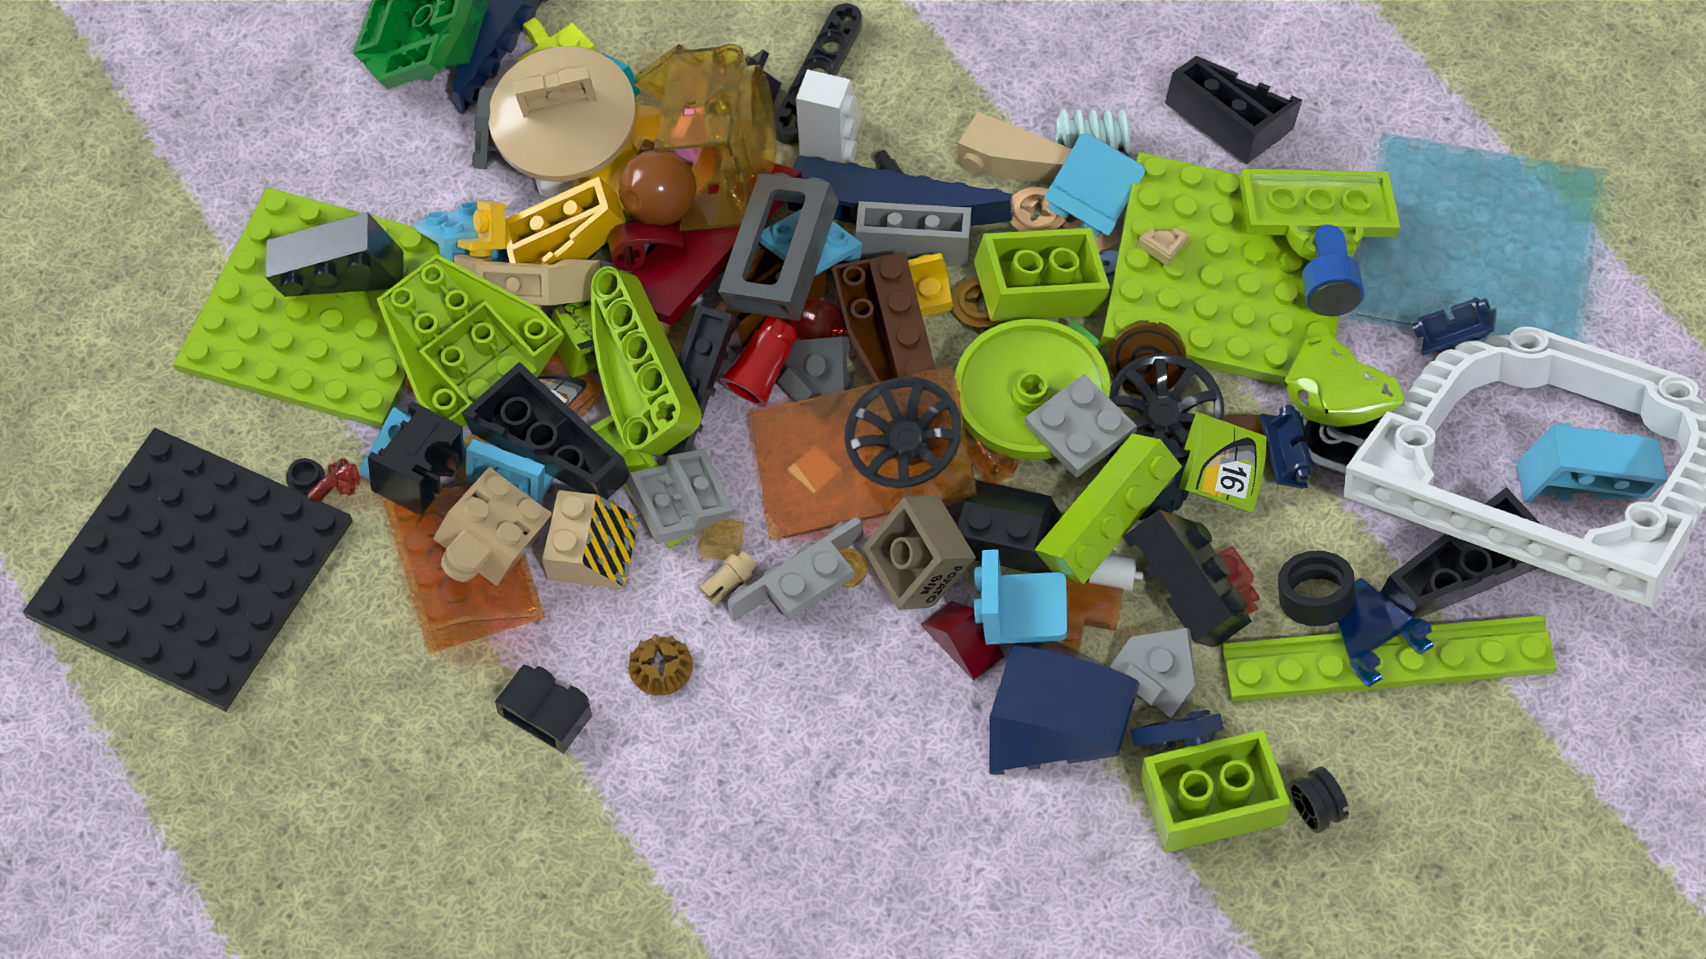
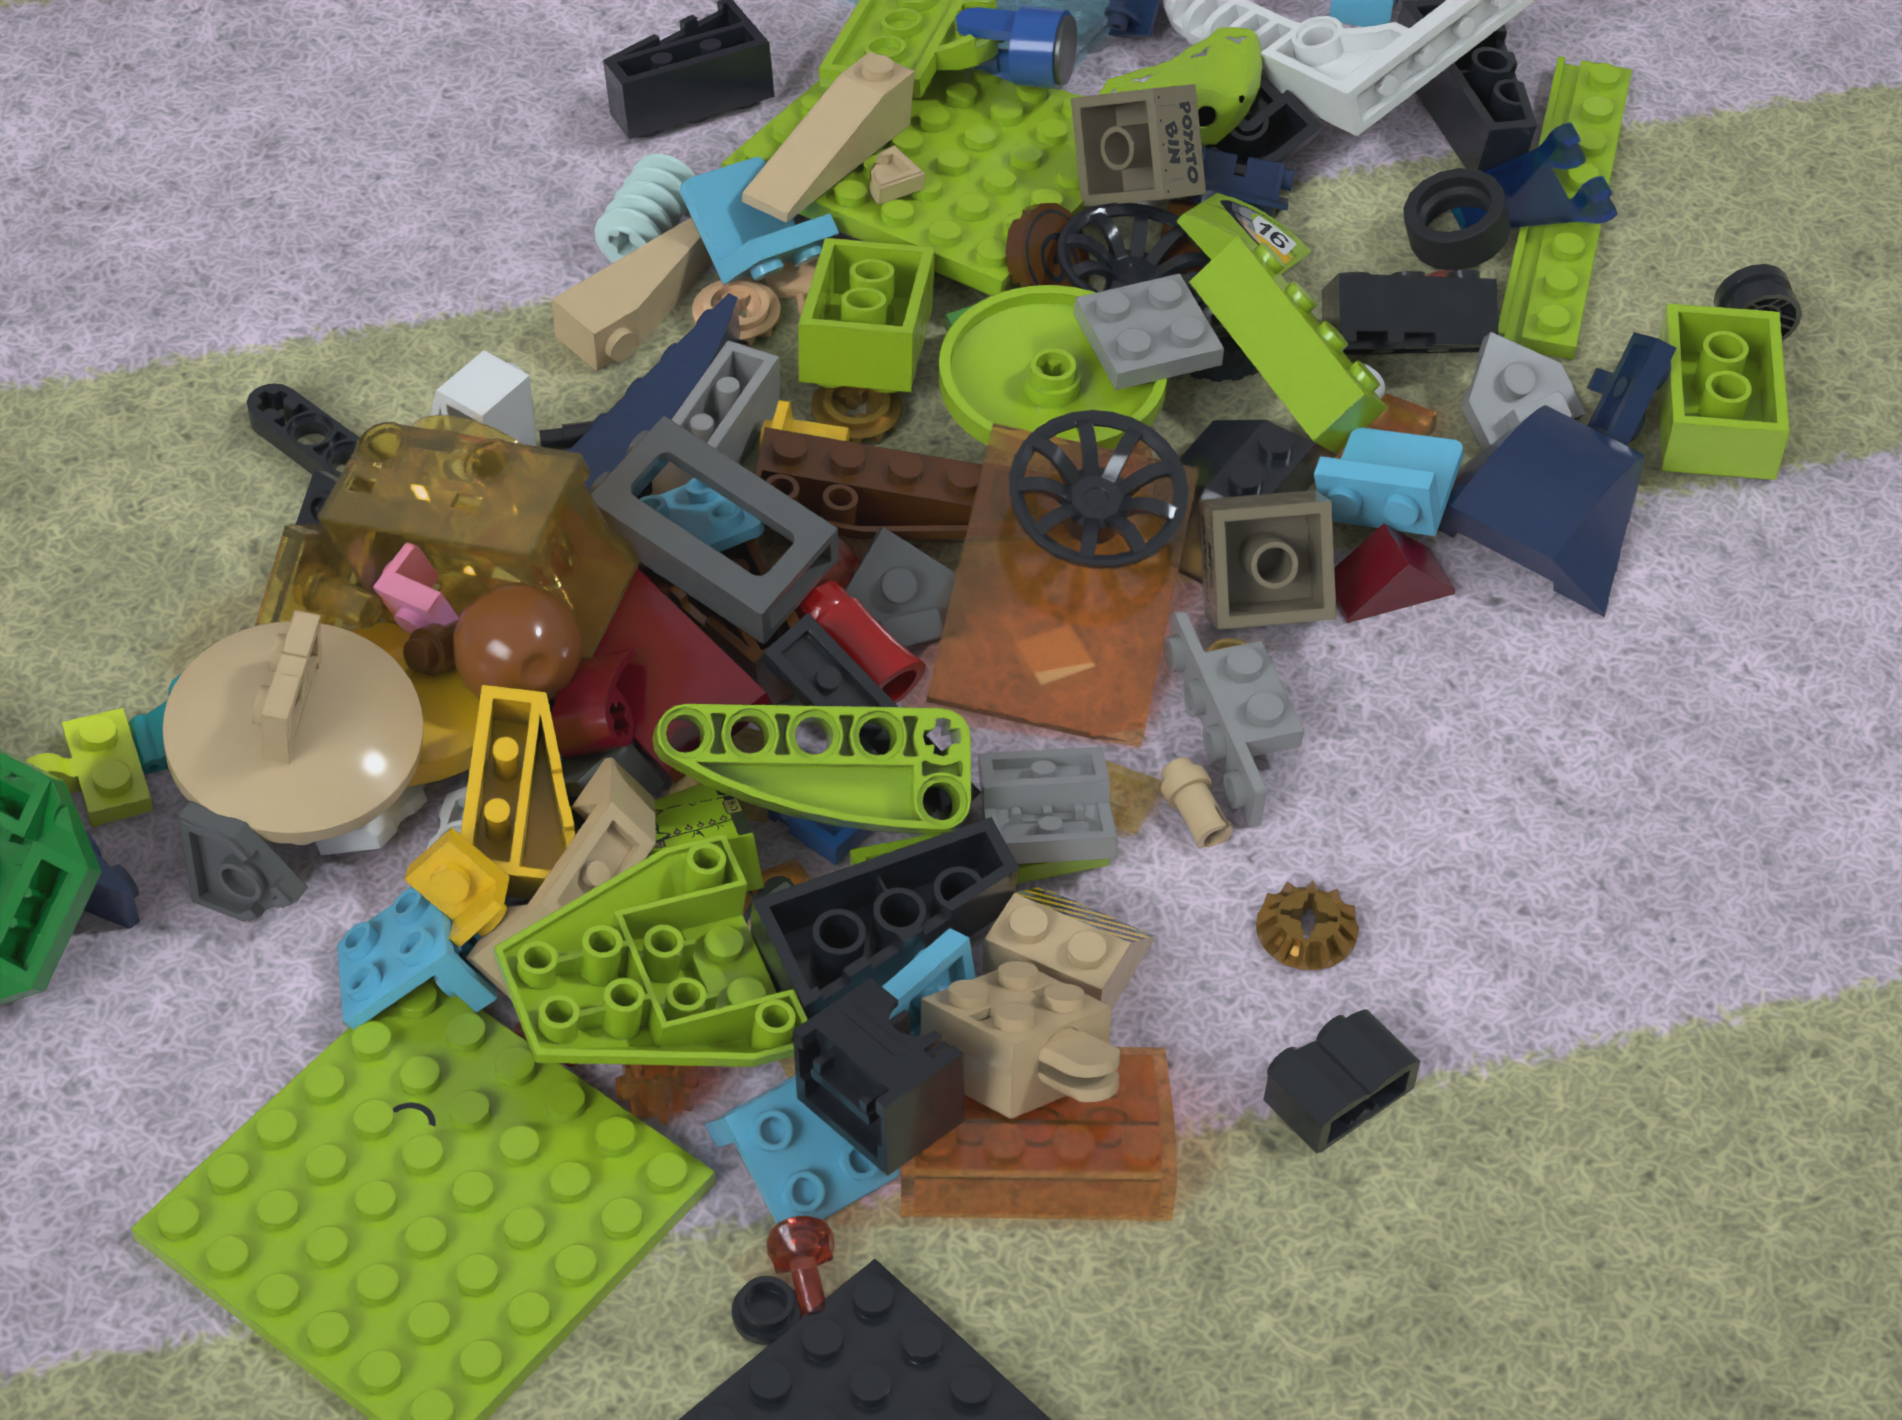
camera: 75 degrees left, 10 degrees down
(335, 258) = (382, 1129): black wedge -> none
(1181, 199) = (840, 132): none -> tan slope
(1255, 368) = (1138, 145): none -> dark tan brick

